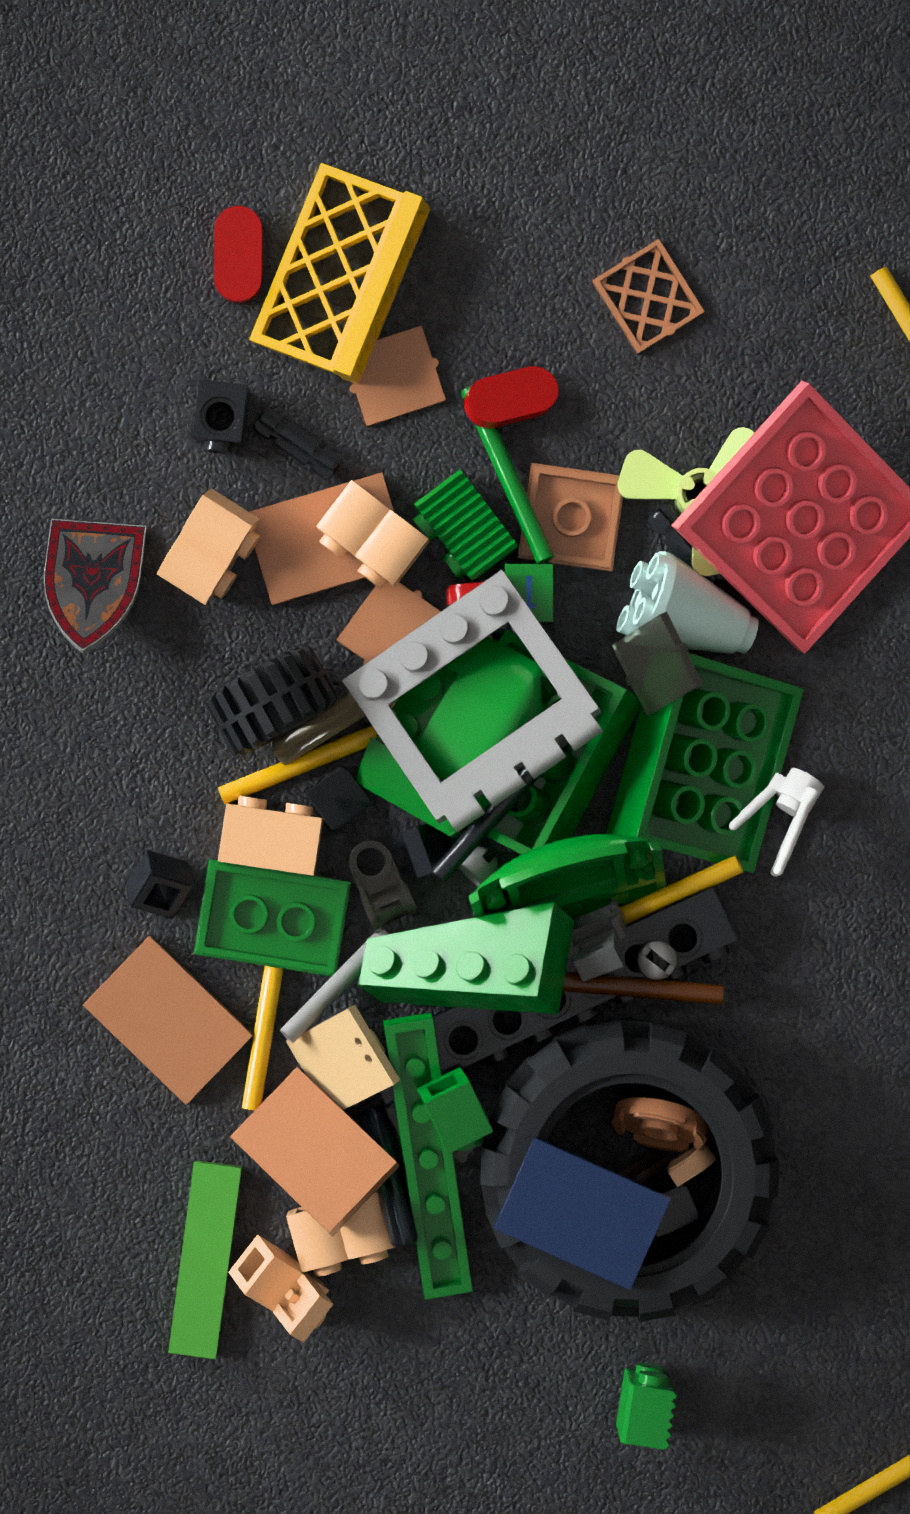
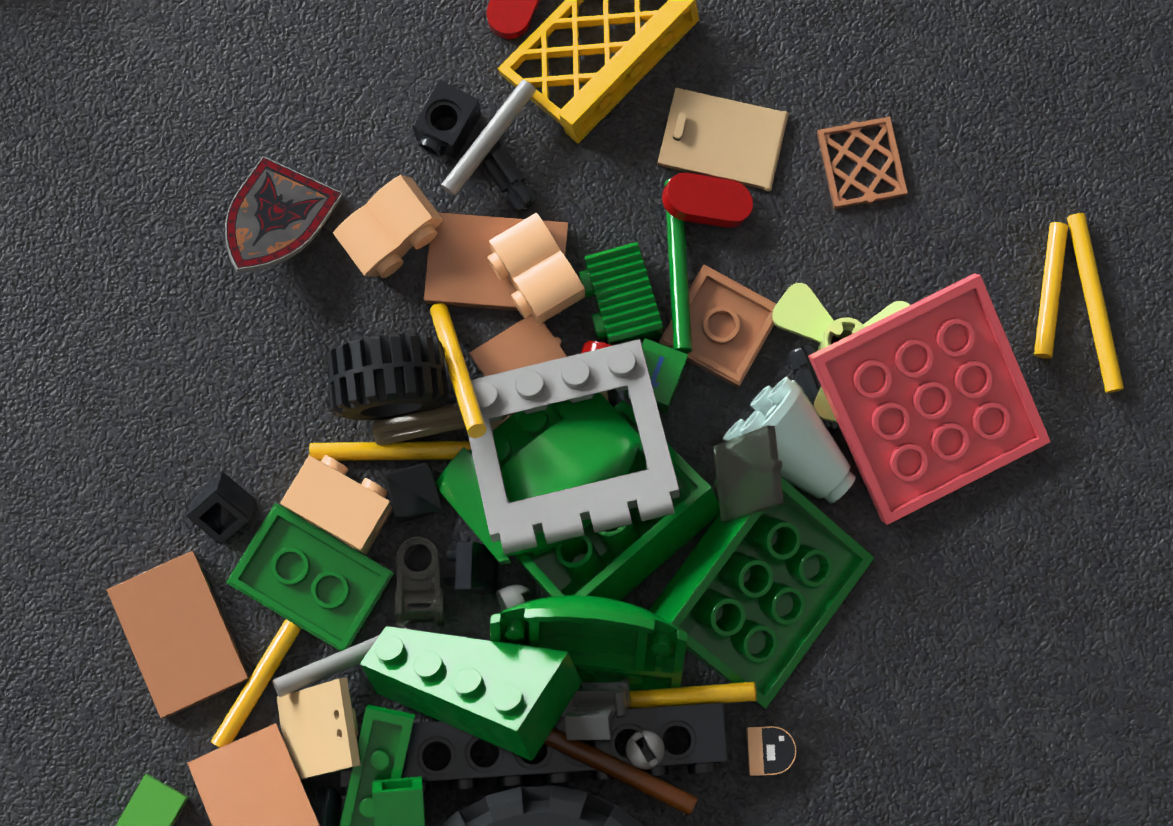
camera: 25 degrees right, 10 degrees down
(271, 418) = (488, 137): none -> light grey bar
(337, 667) = (458, 371): none -> yellow bar
(398, 378) = (614, 150): nougat piece -> none
(482, 827) = (537, 560): black piece -> none
(501, 324) = (723, 139): none -> tan container
(772, 911) = (769, 750): none -> tile
(796, 797) = (831, 652): white plant -> none
(880, 356) = (1051, 290): none -> yellow bar

